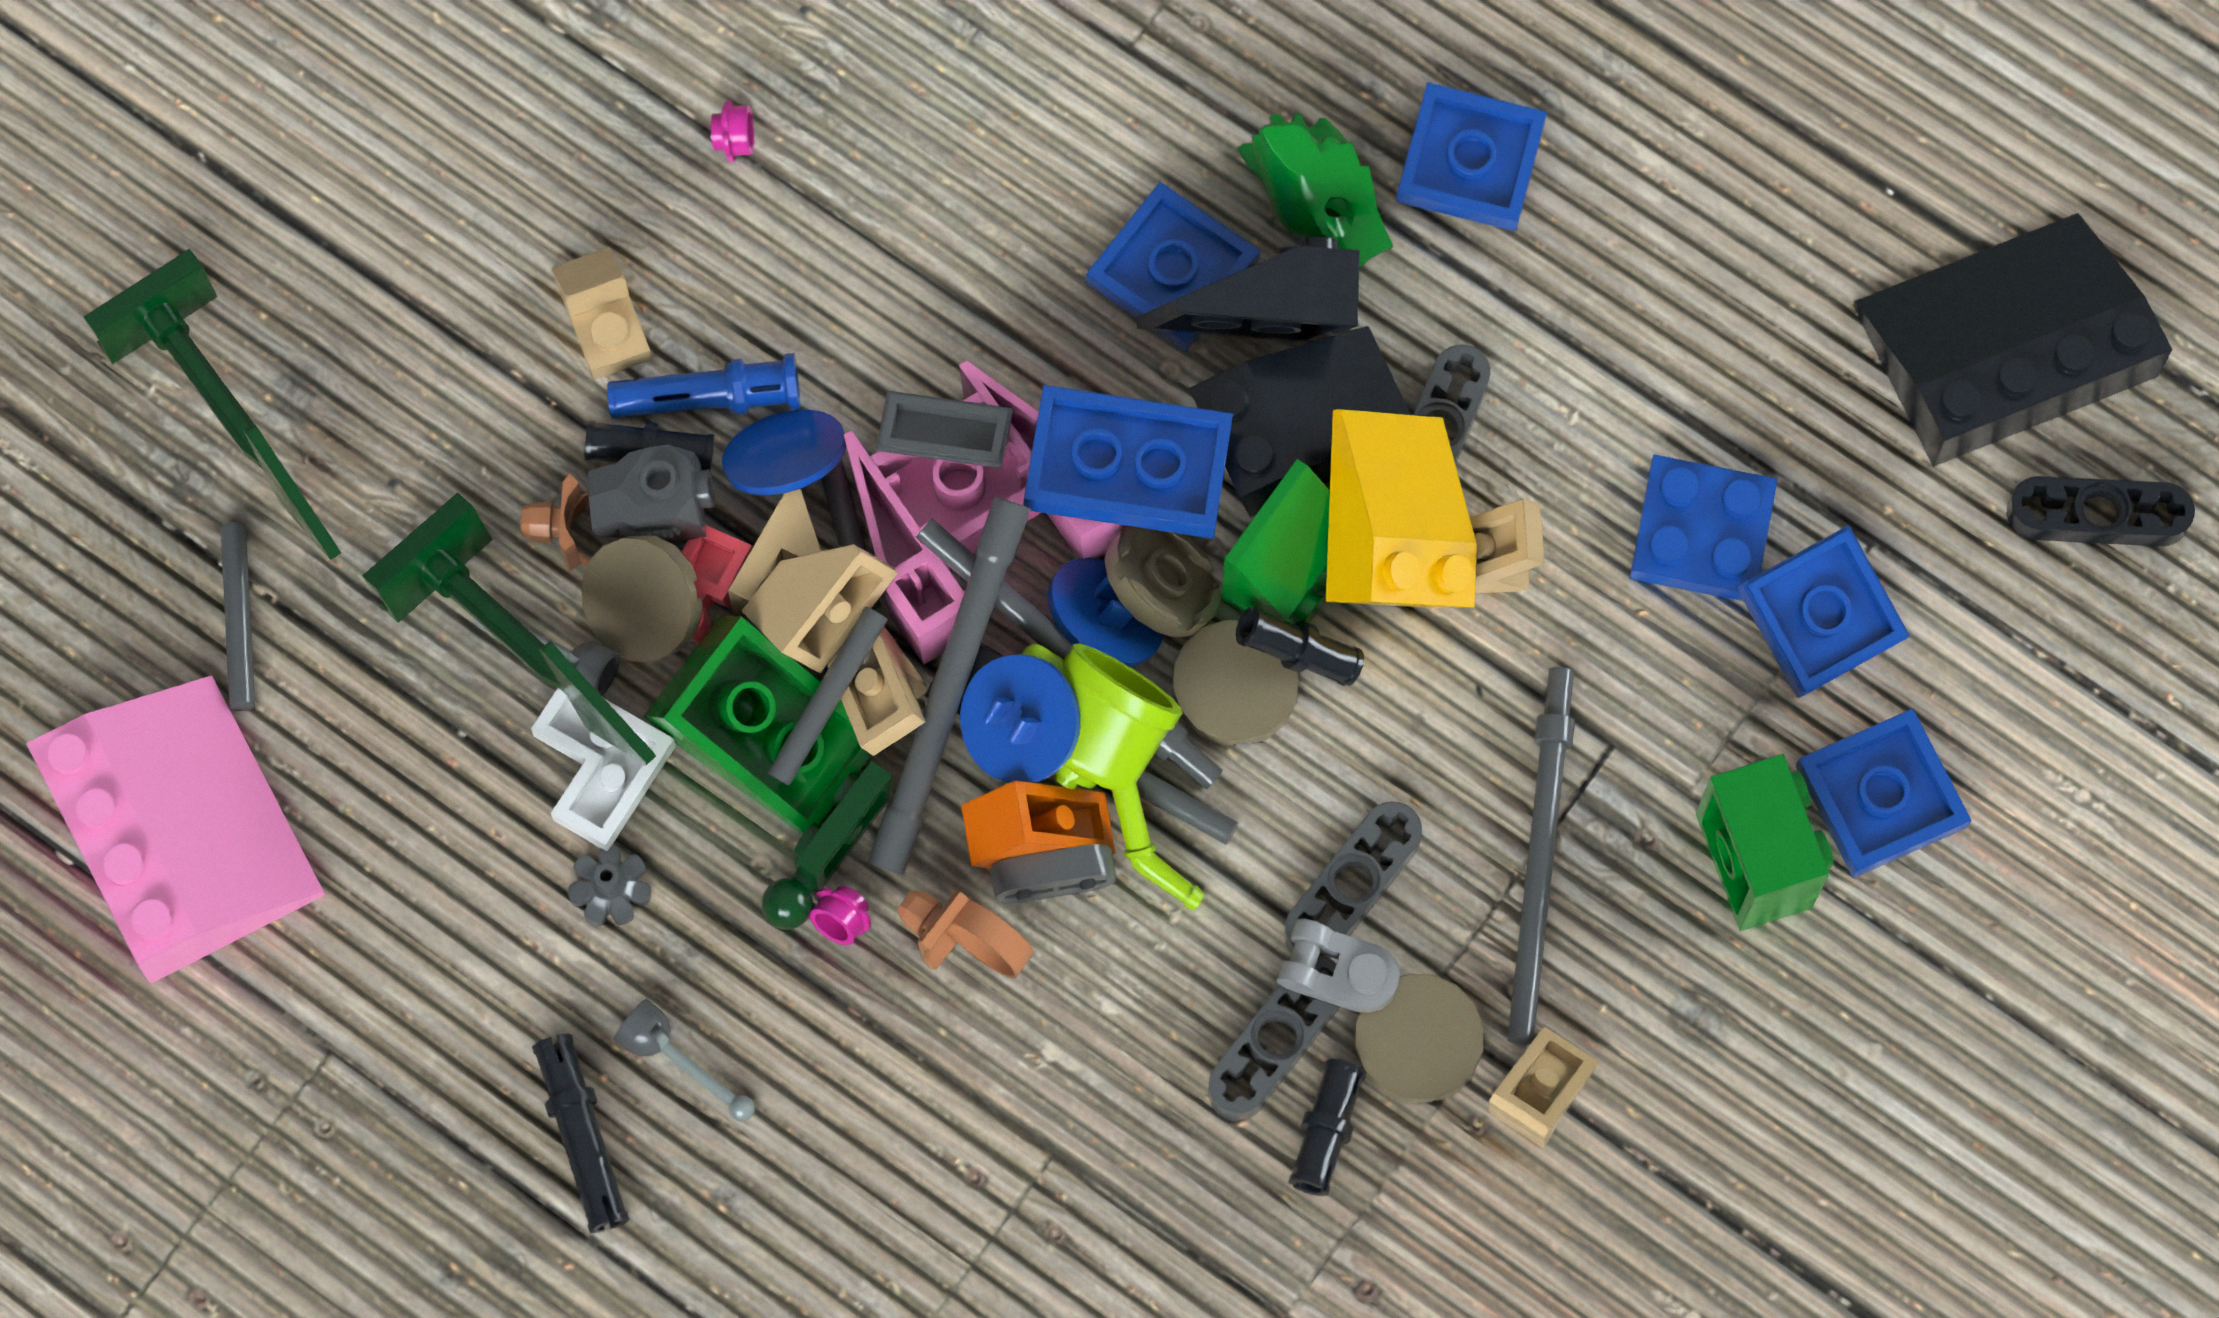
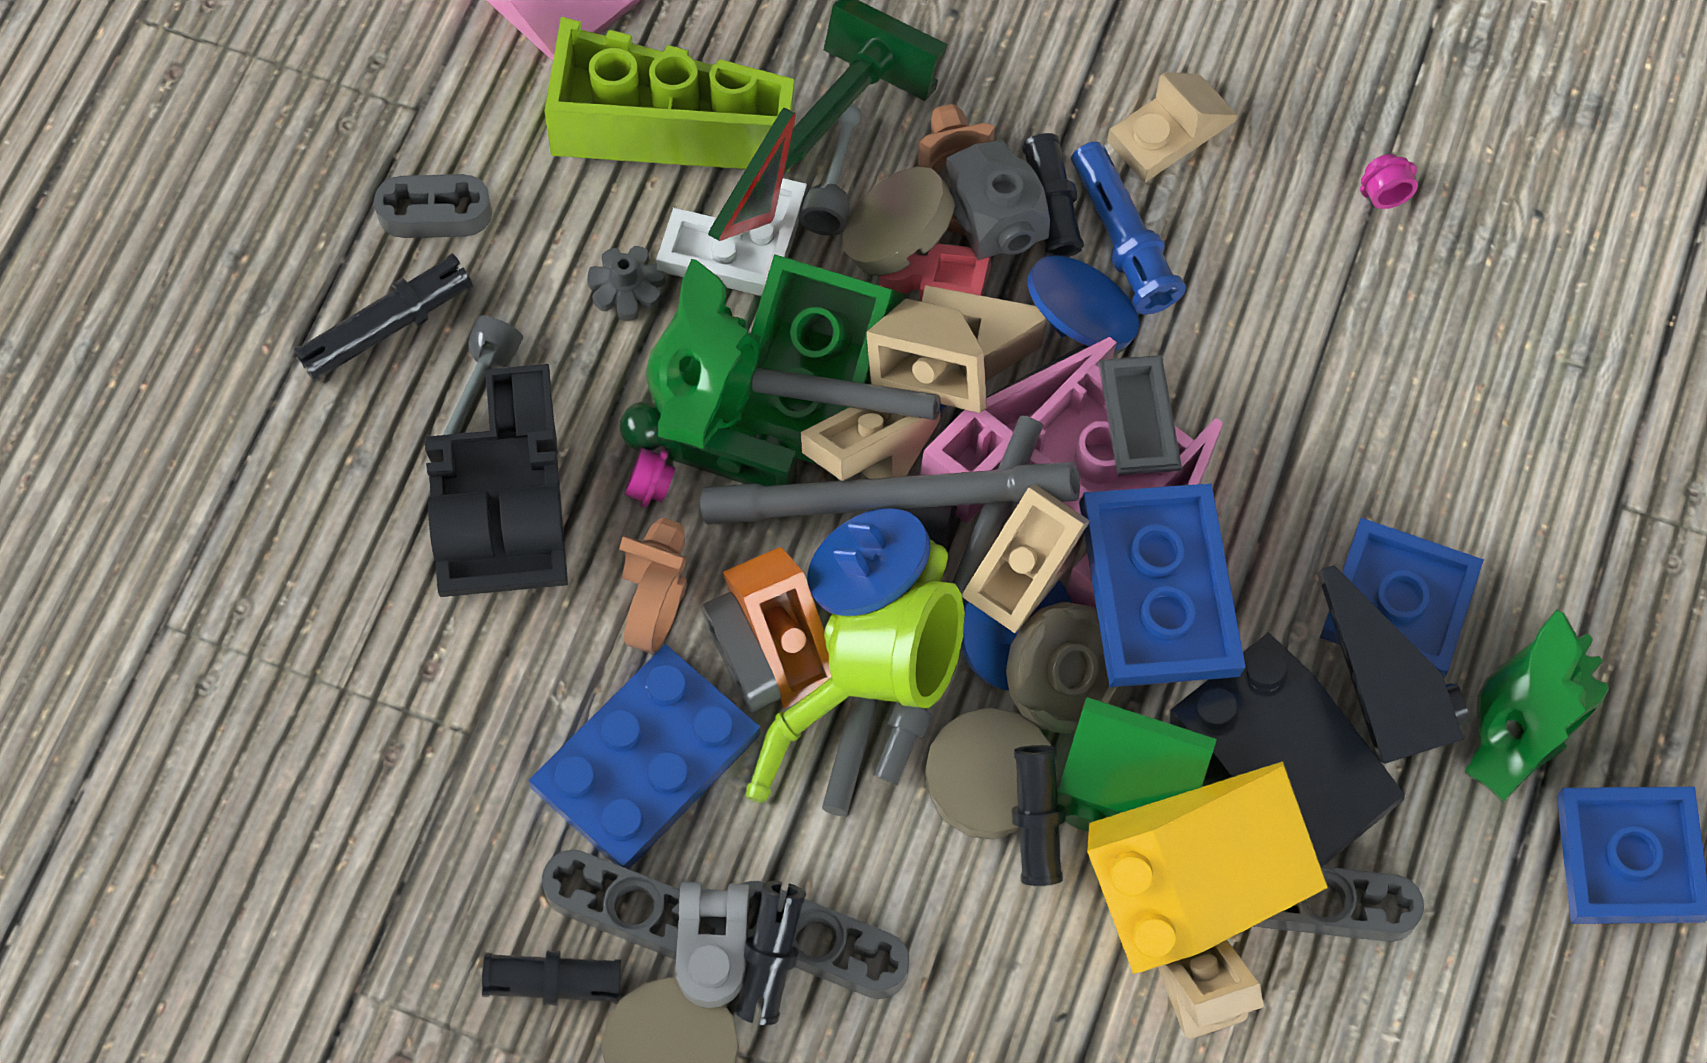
camera: 75 degrees right, 5 degrees down
(432, 790) = (655, 104): none -> lime wedge
(475, 1061) = (433, 206): none -> dark grey beam
(763, 820) = (701, 362): none -> green piece
(827, 1060) = (499, 493): none -> black plate
(1068, 573) = (1025, 558): none -> tan slope
(1130, 993) = (644, 758): none -> blue plate
(1365, 916) = (770, 952): none -> black pin

